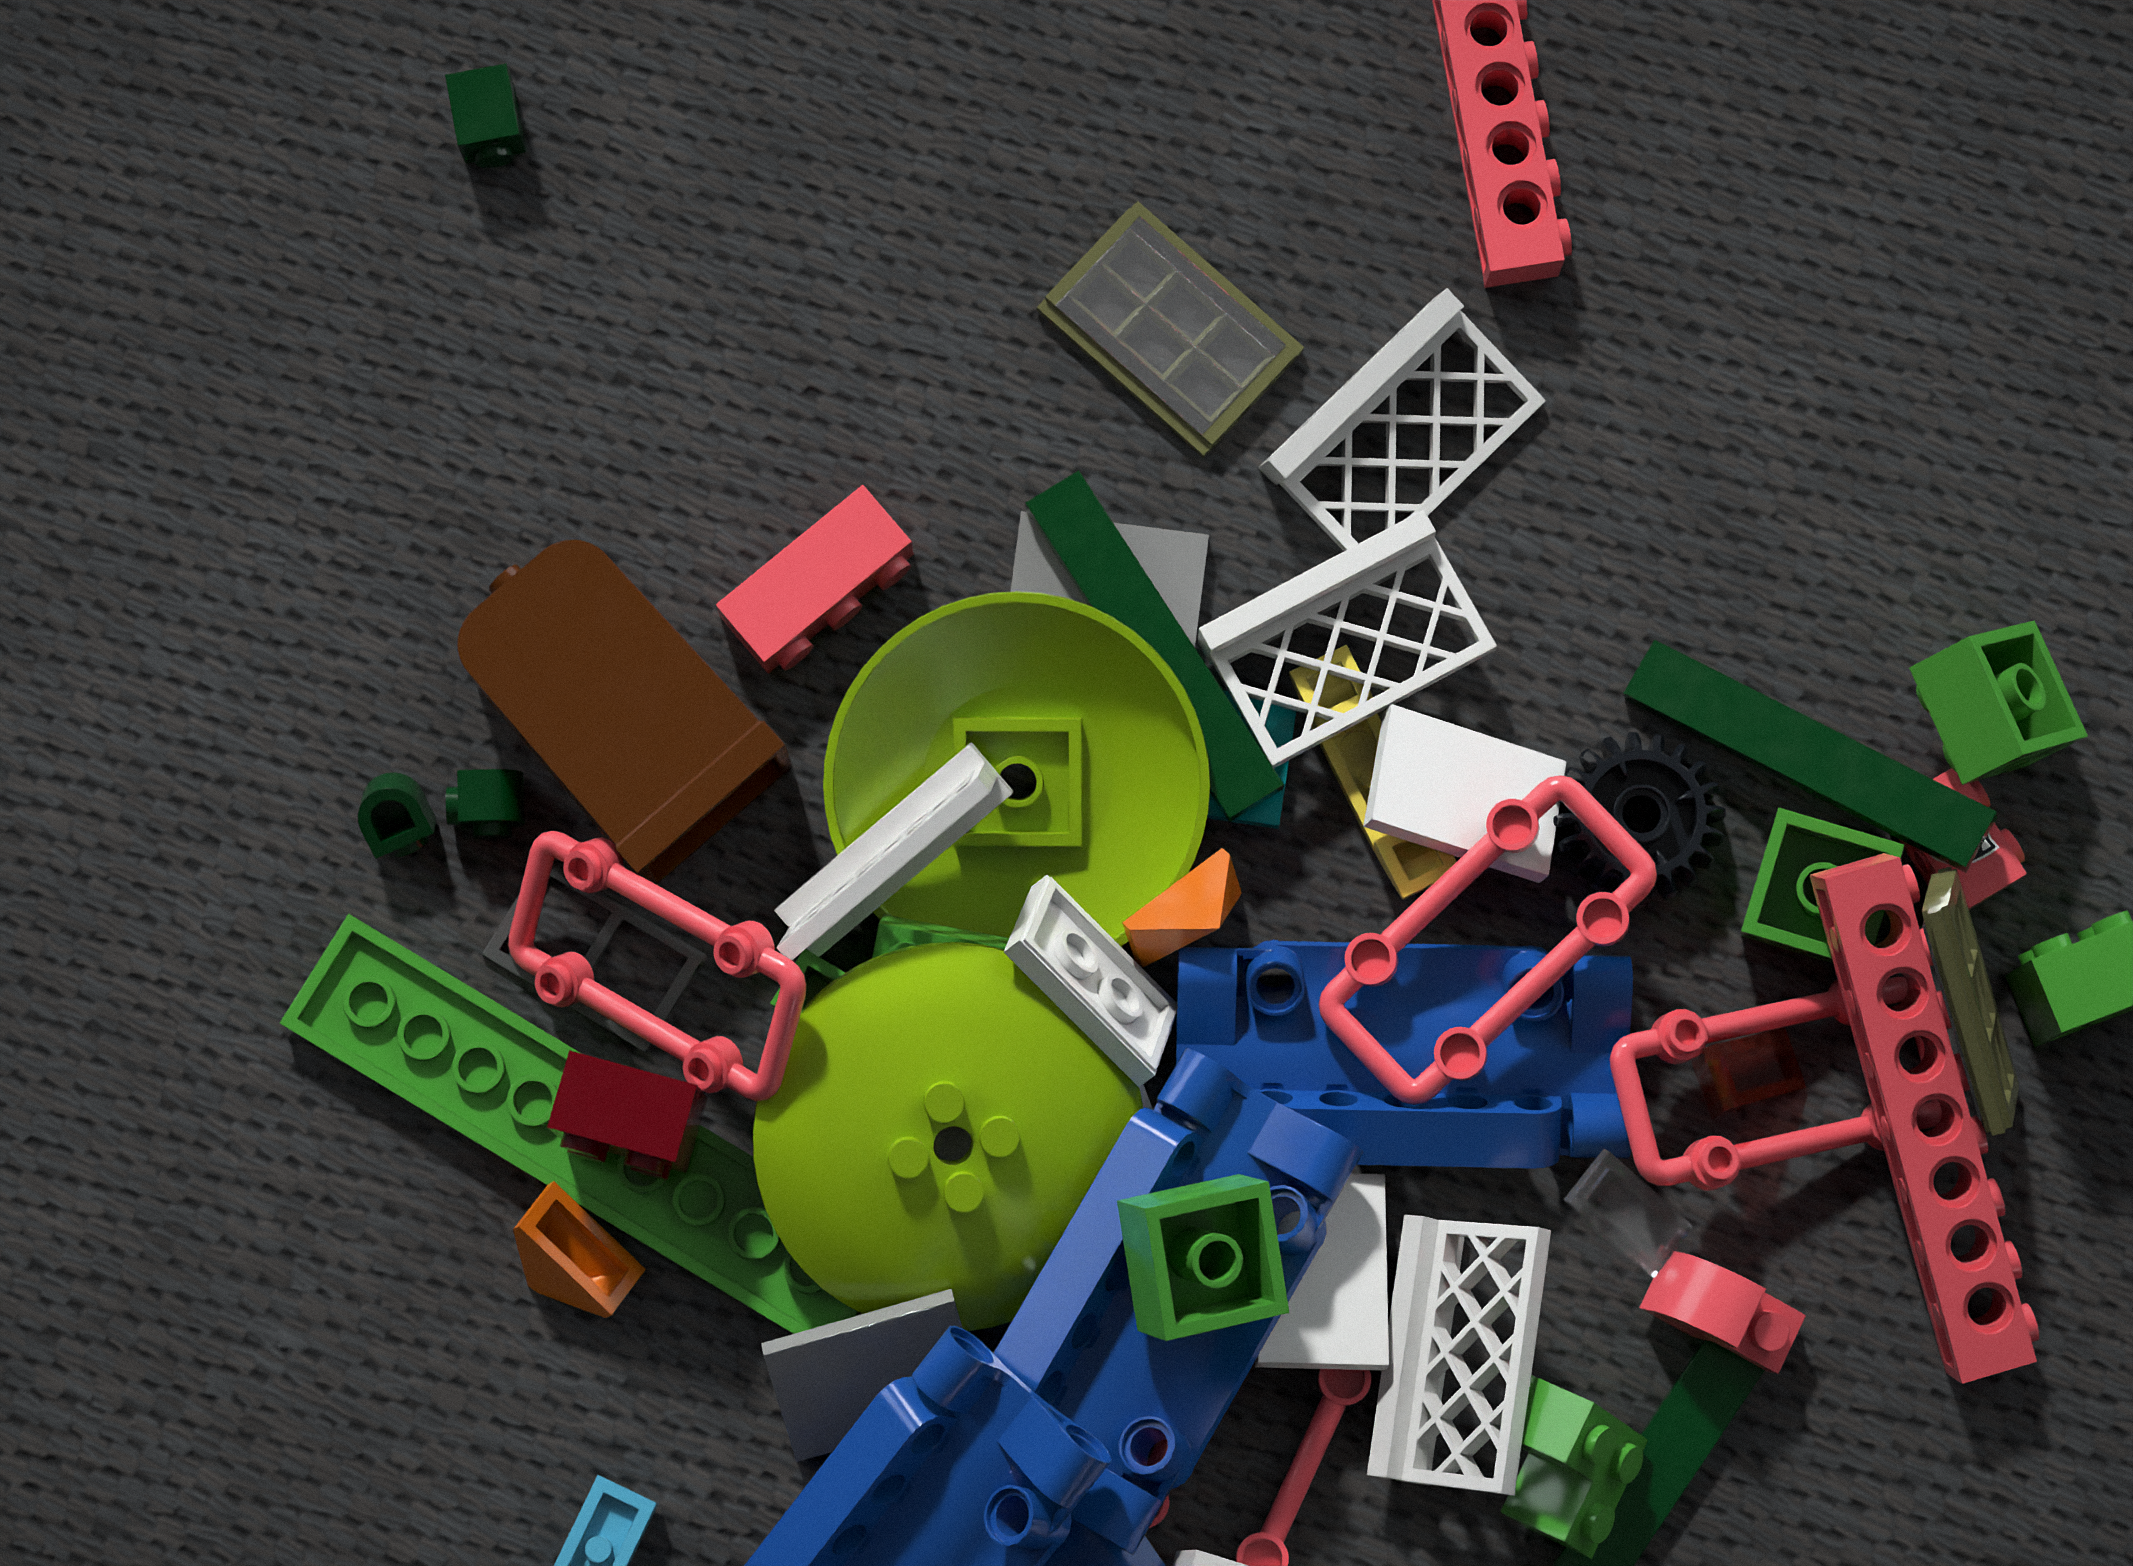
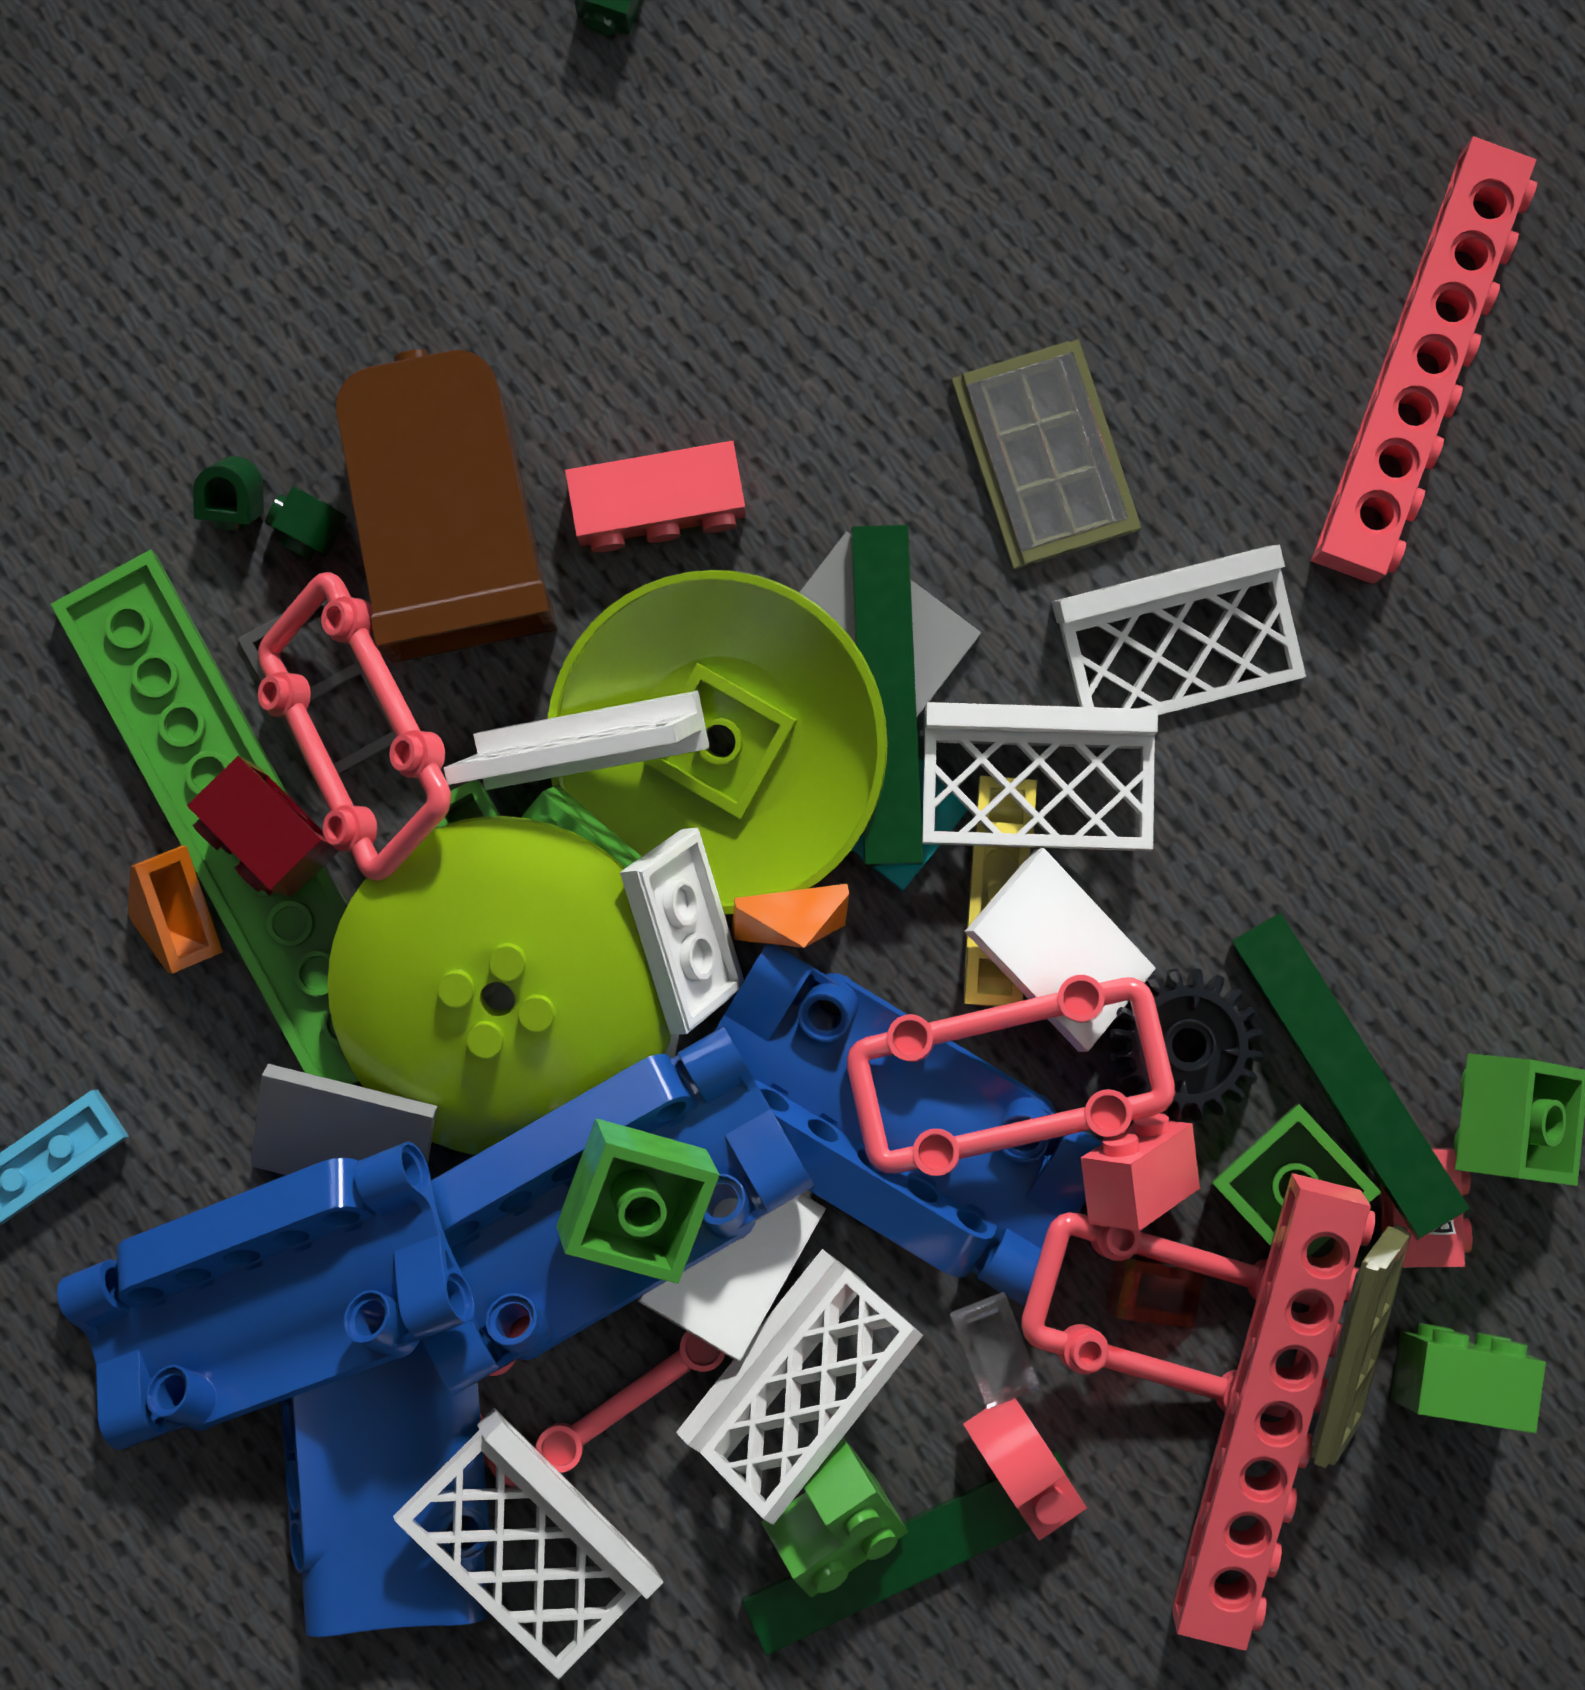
camera: 25 degrees right, 5 degrees up
(1666, 960) = (1140, 1173): none -> coral brick

